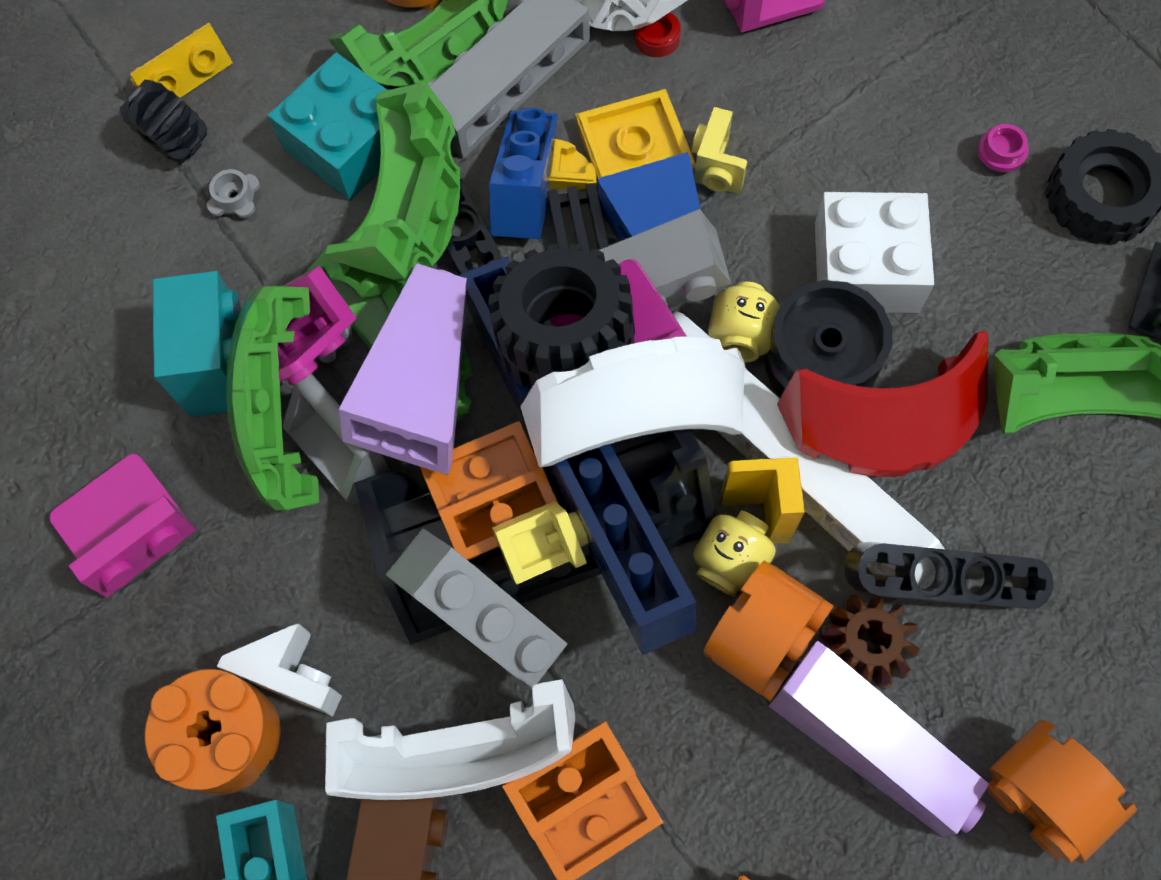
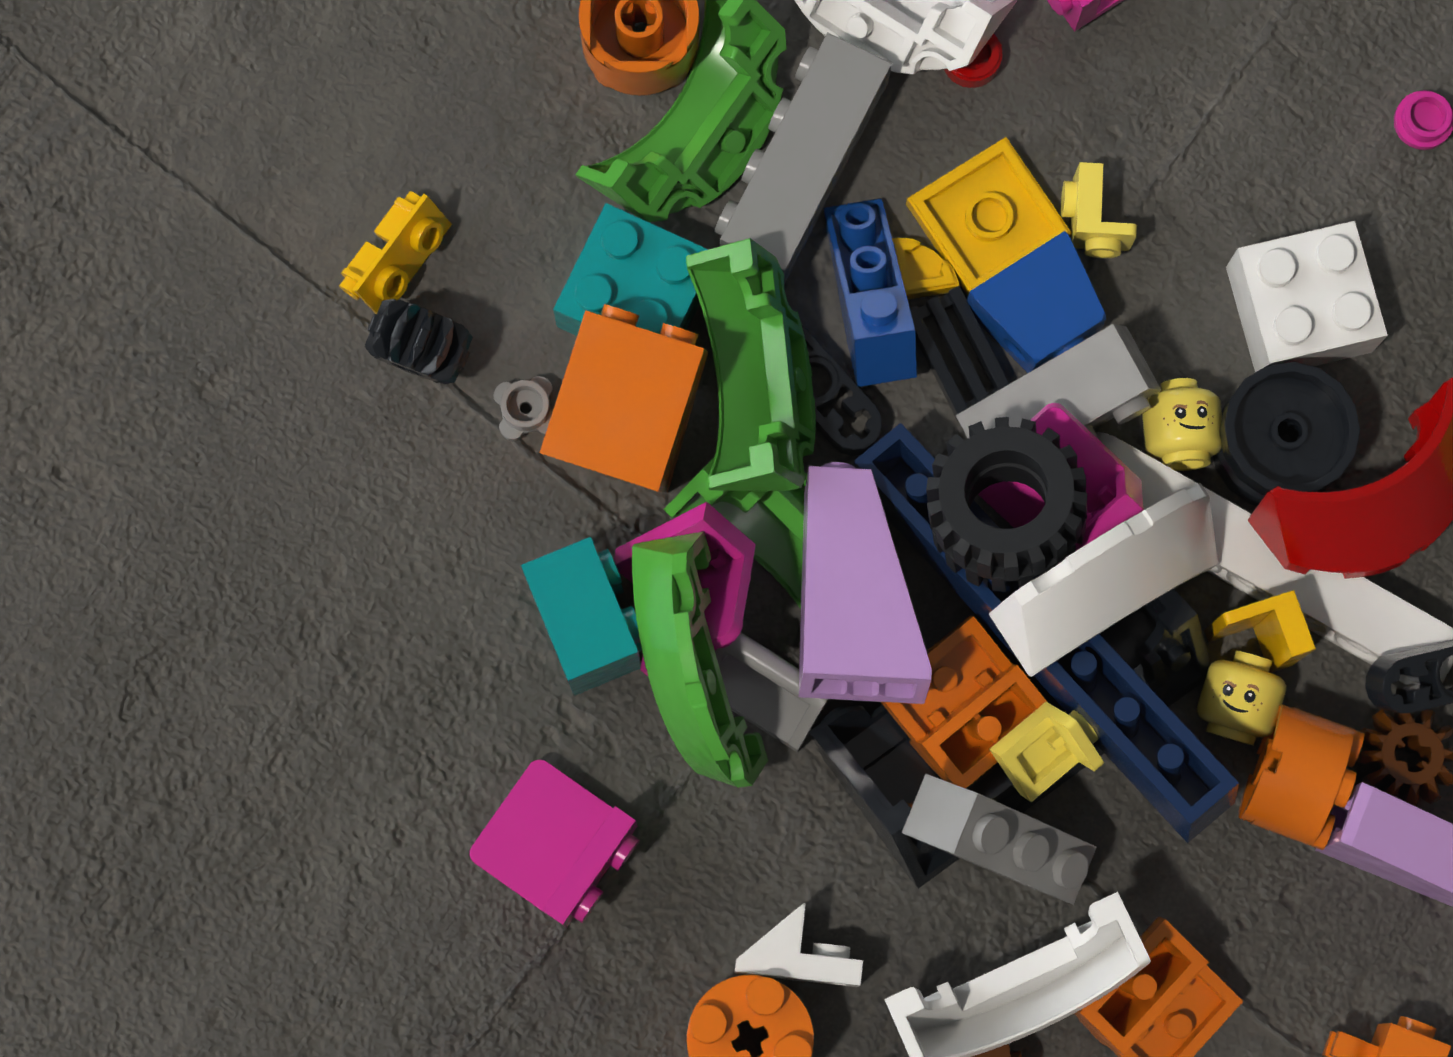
camera: 20 degrees left, 10 degrees up
(291, 185) = (626, 399): none -> orange slope

